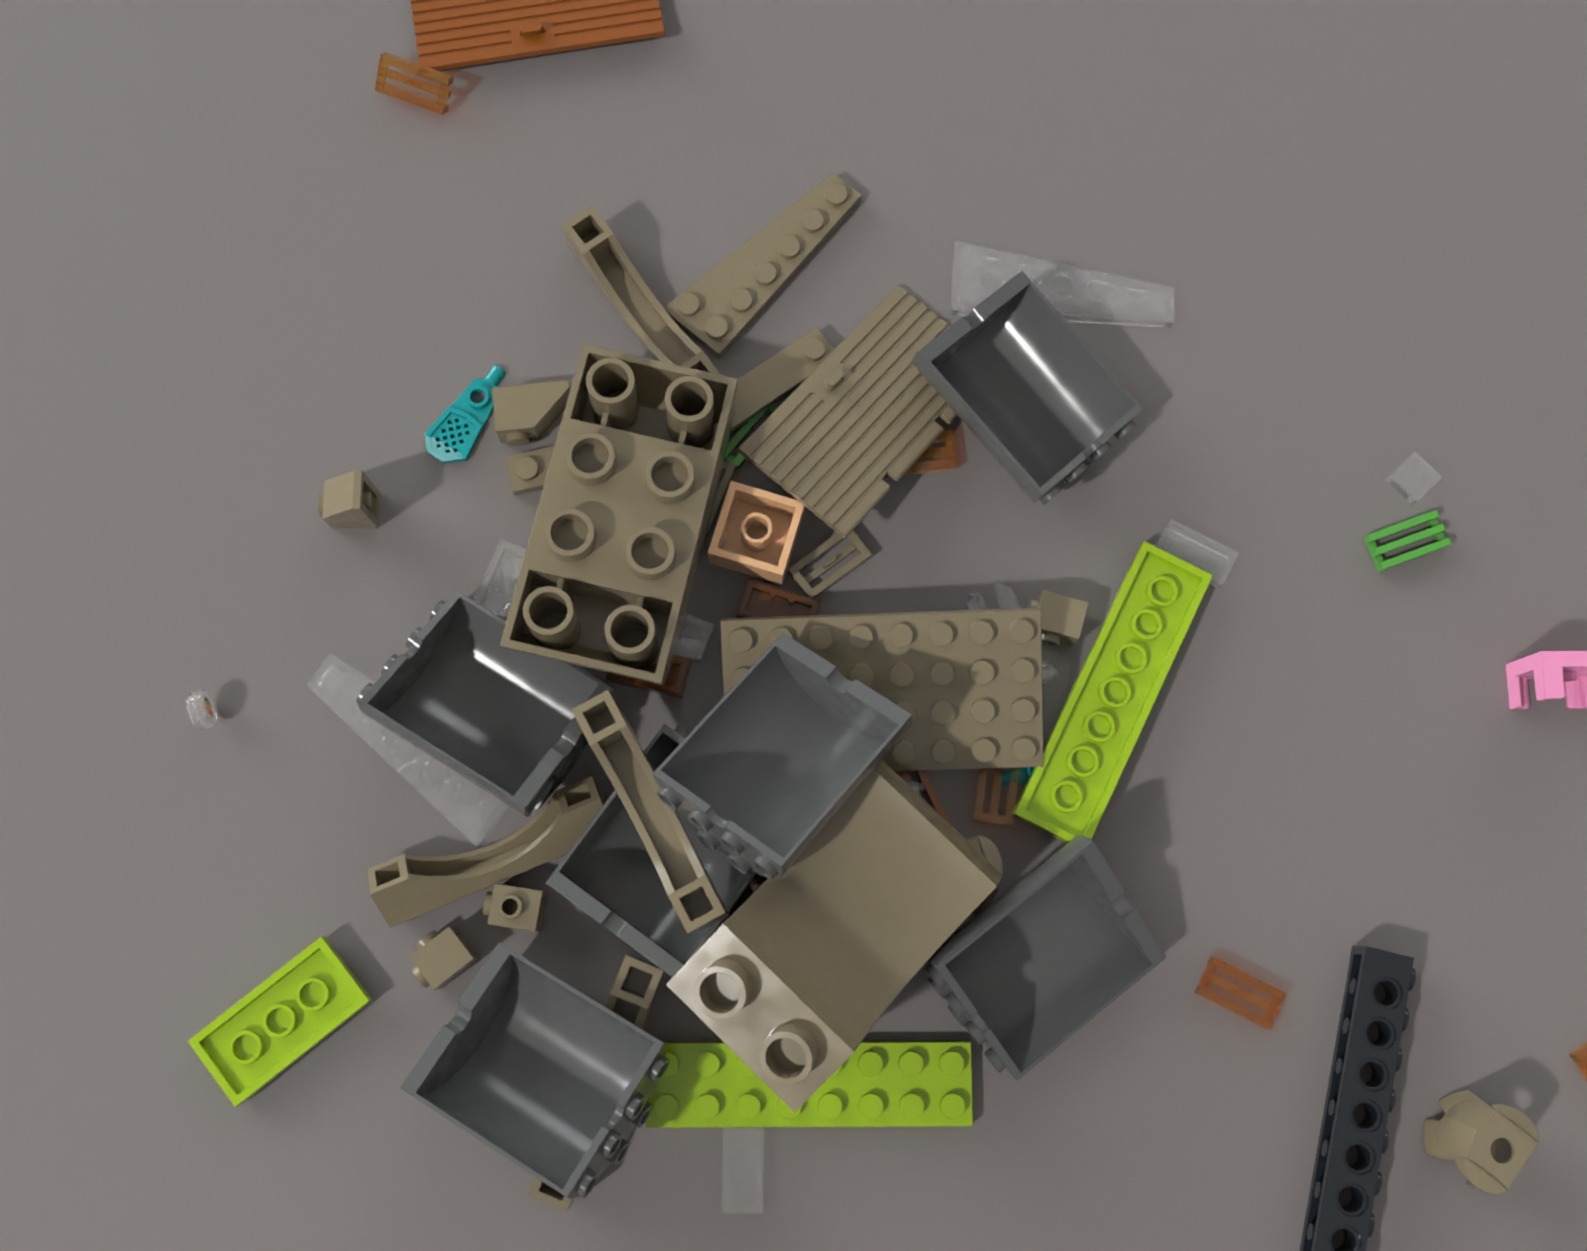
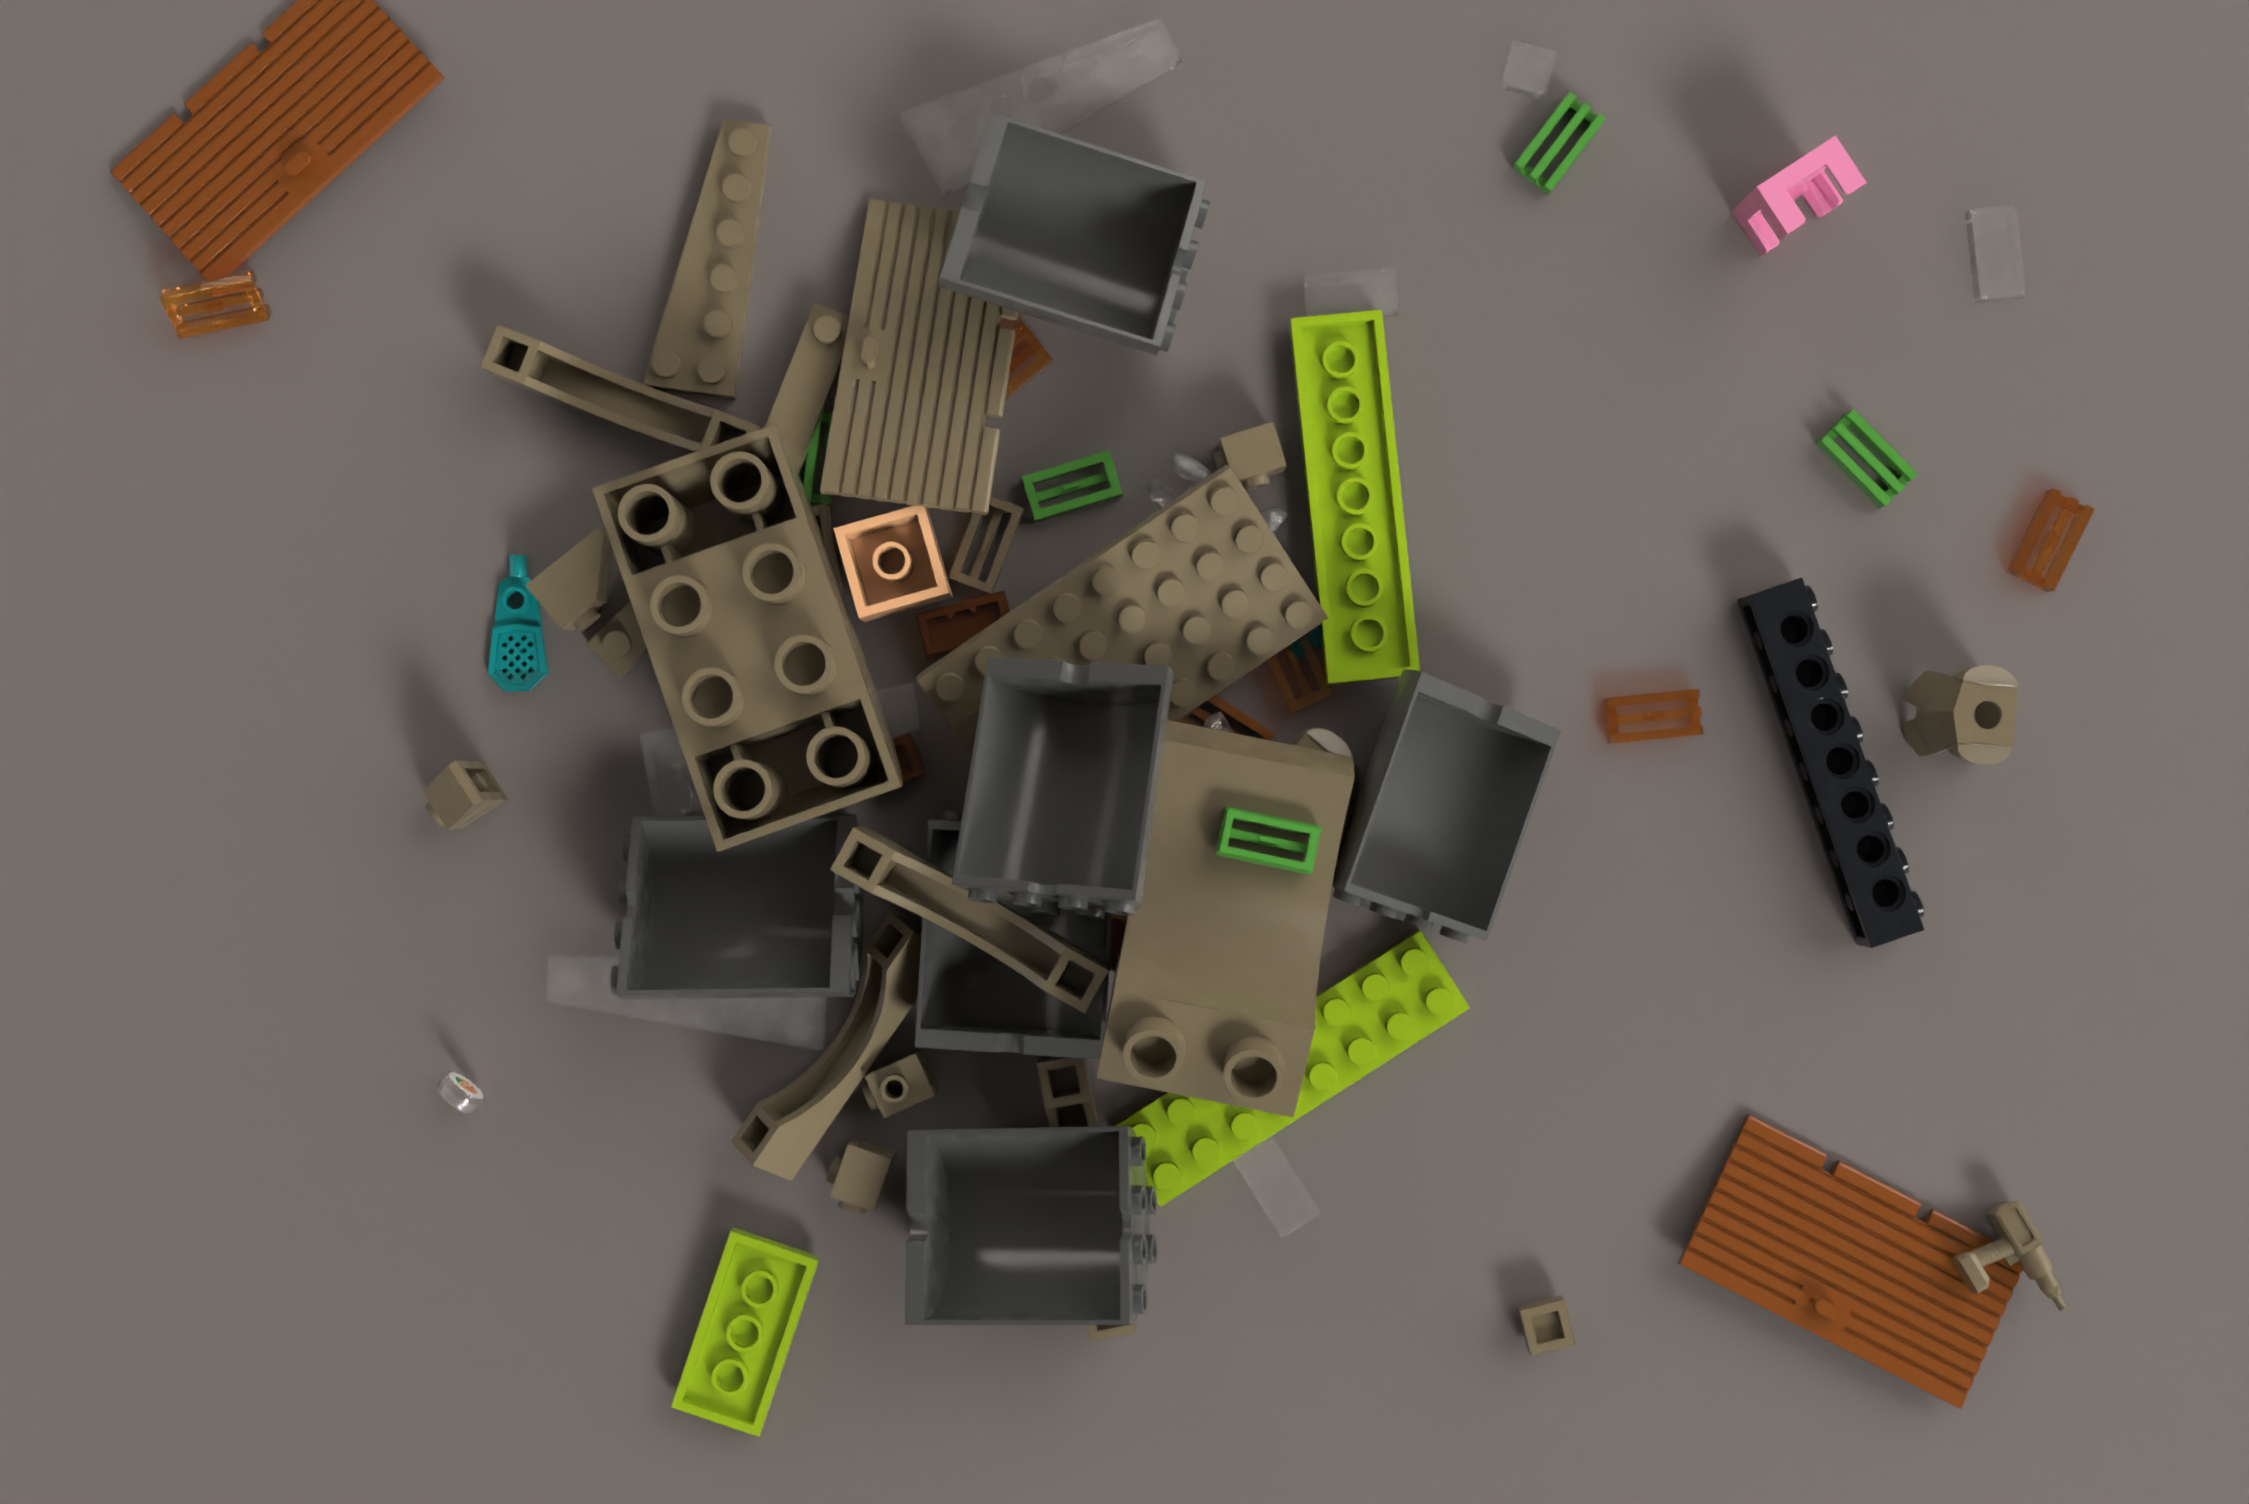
camera: 25 degrees left, 10 degrees up
(910, 575) = (1066, 469): none -> bright green tile
(933, 898) = (1227, 833): none -> bright green tile
(1523, 899) = (1879, 446): none -> bright green tile

